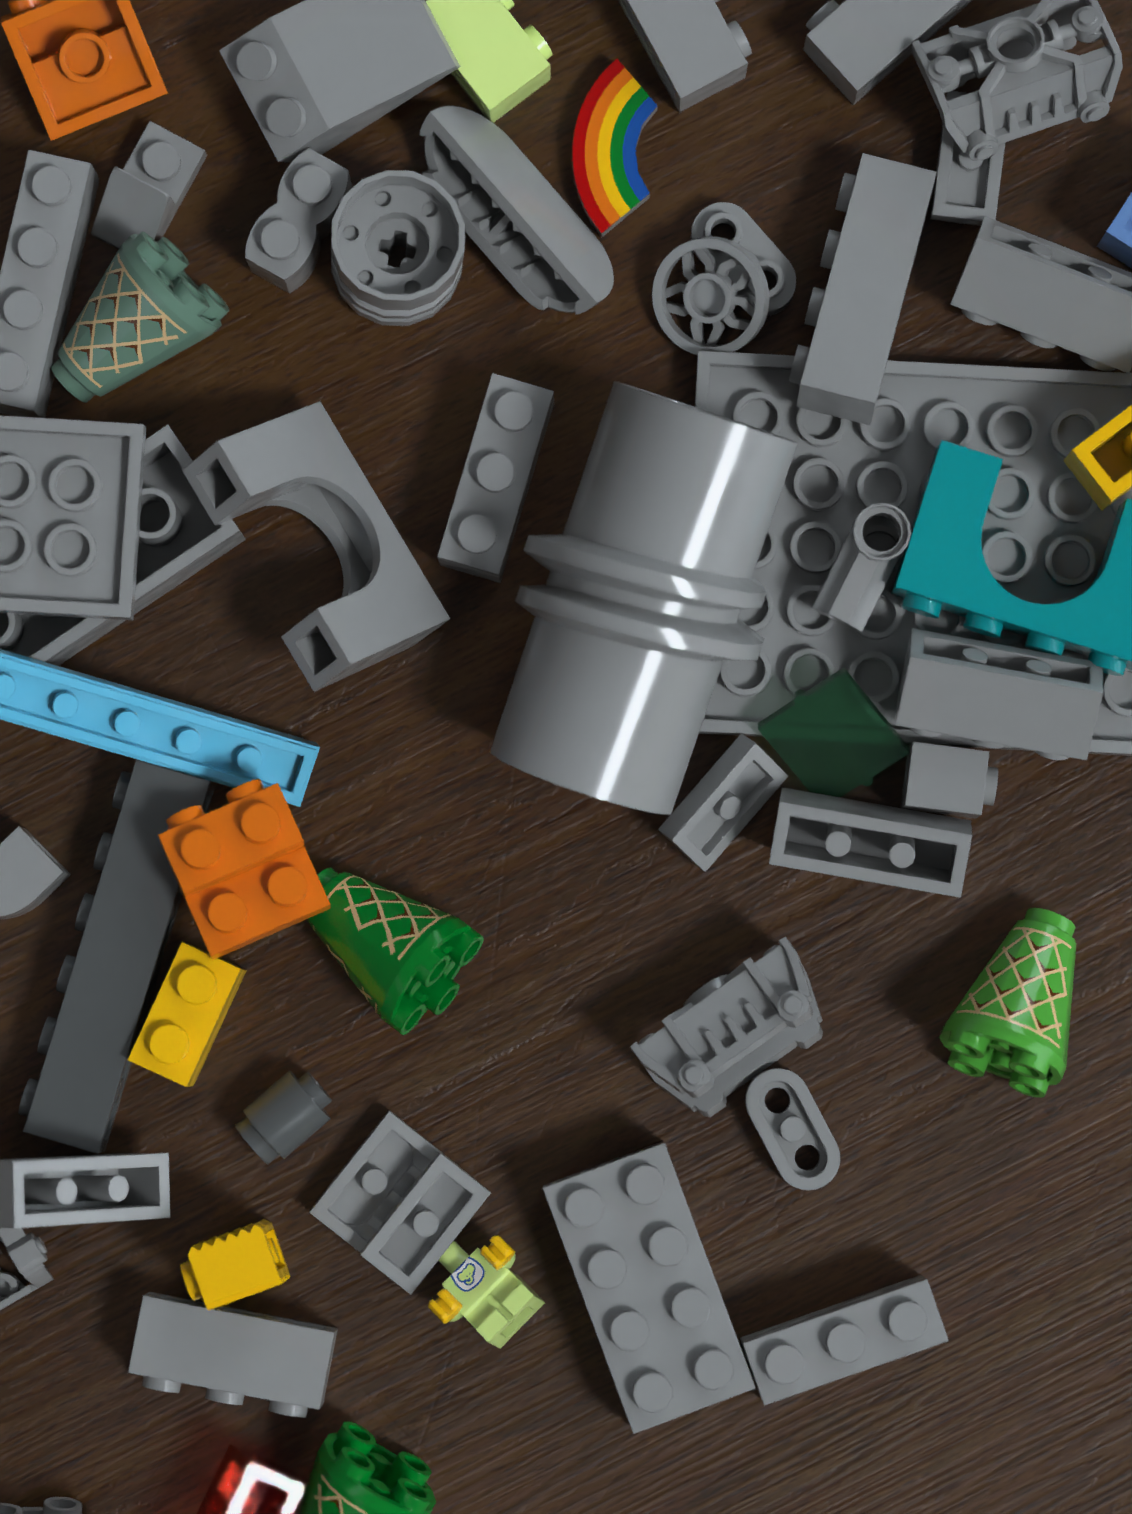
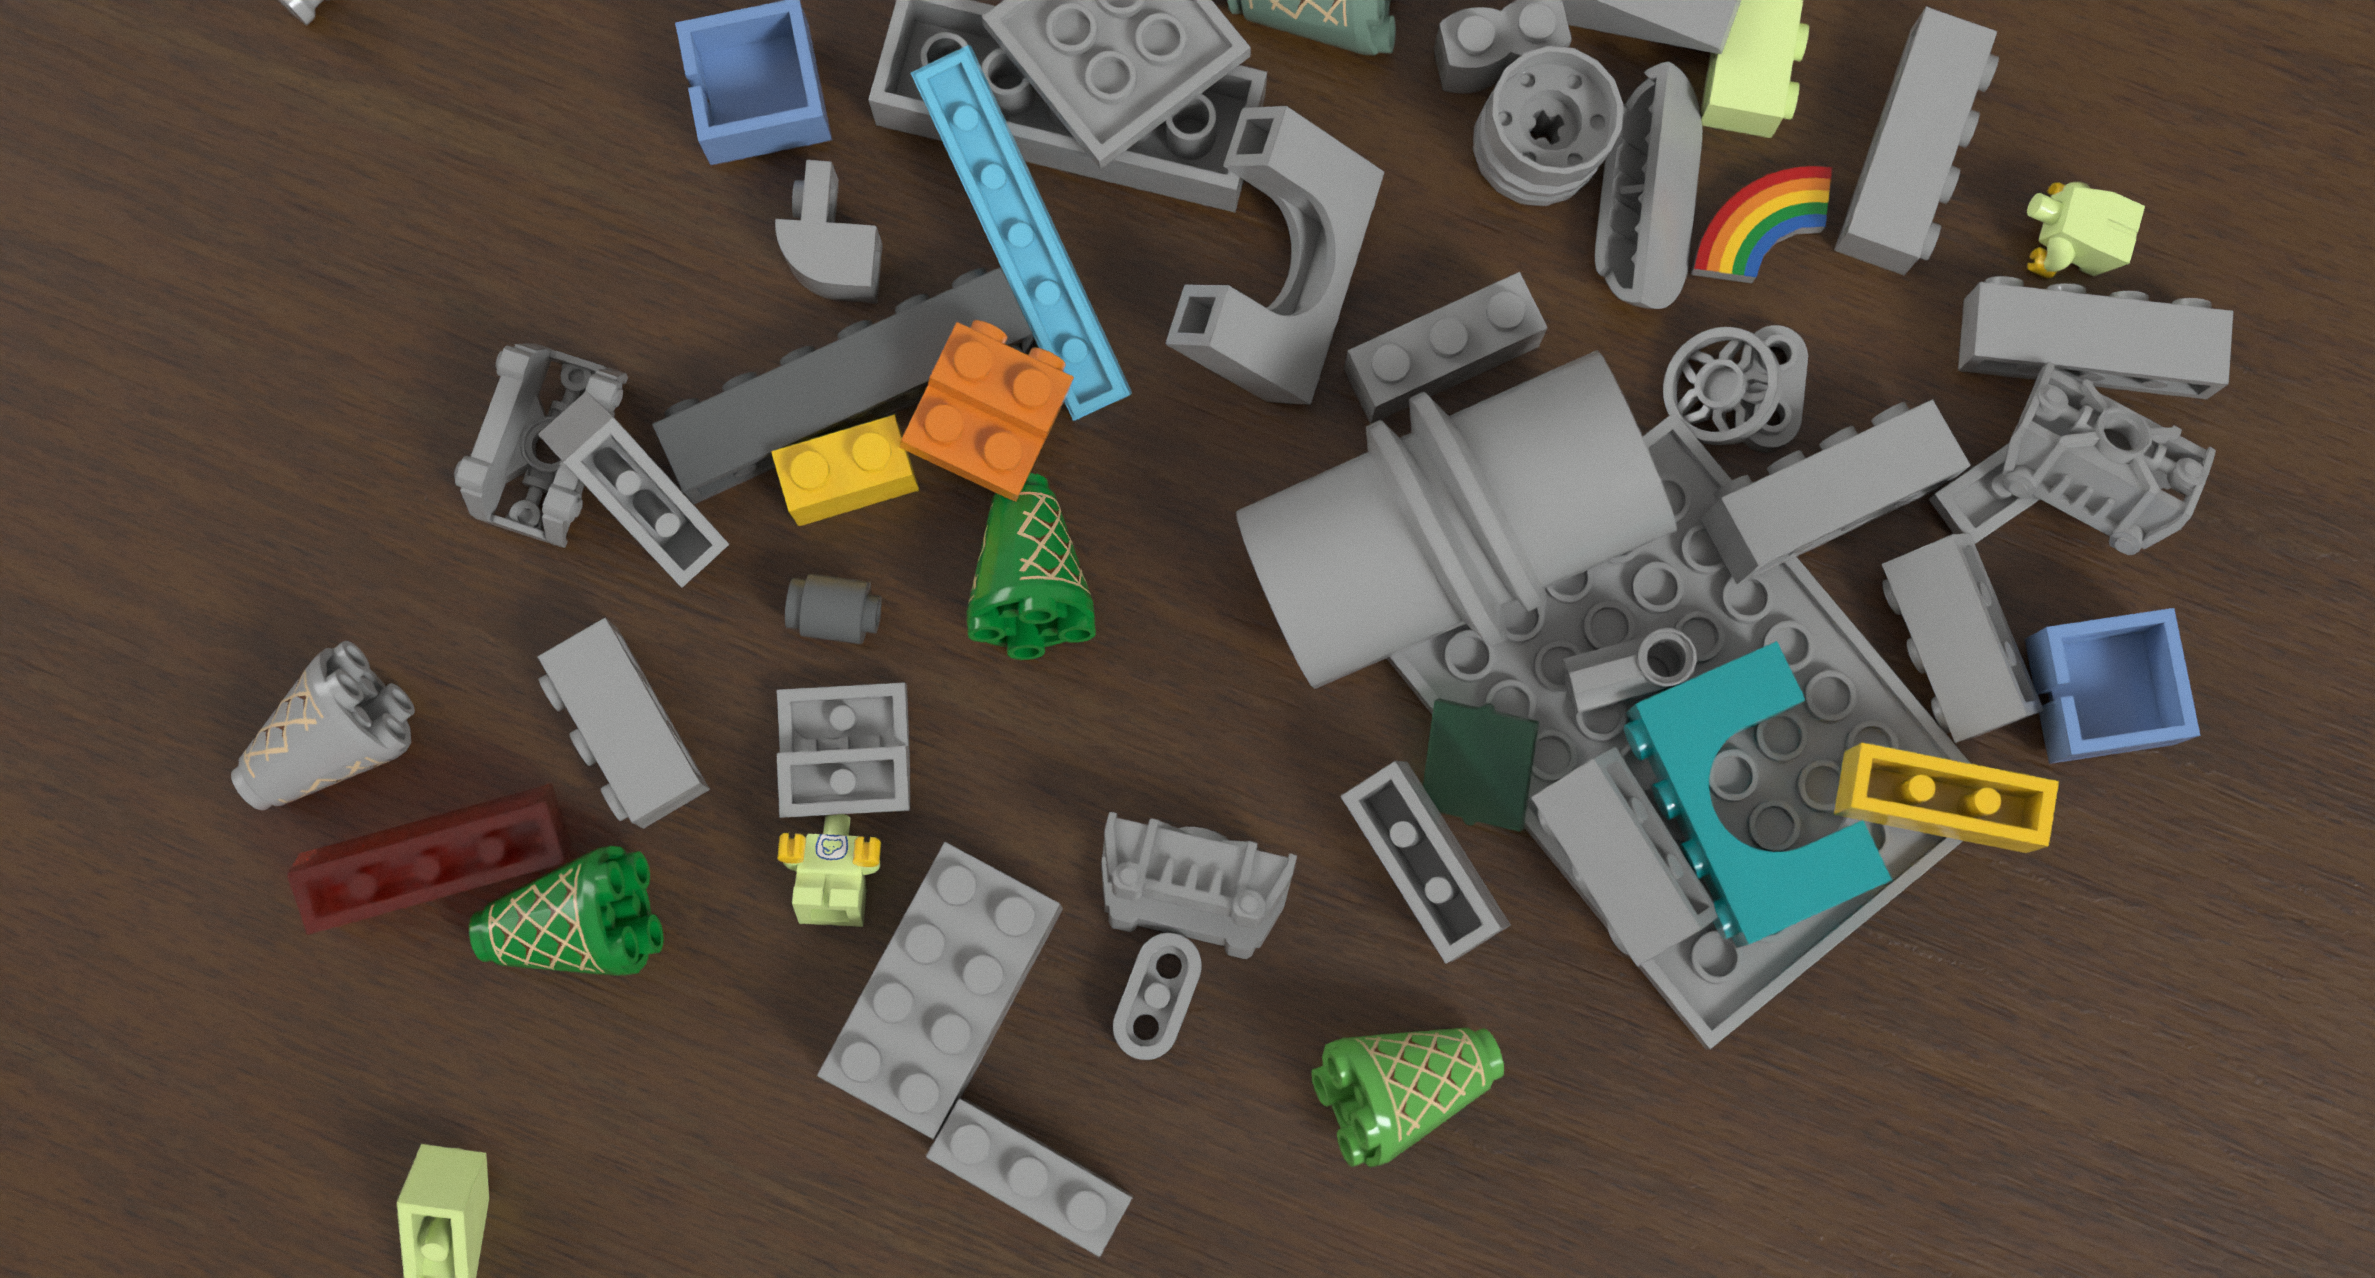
camera: 45 degrees right, 5 degrees down
(235, 1265) = (687, 664): yellow brick -> none
(723, 802) = (1356, 726): light grey plate -> none
(948, 780) = (1525, 880): light grey brick -> none

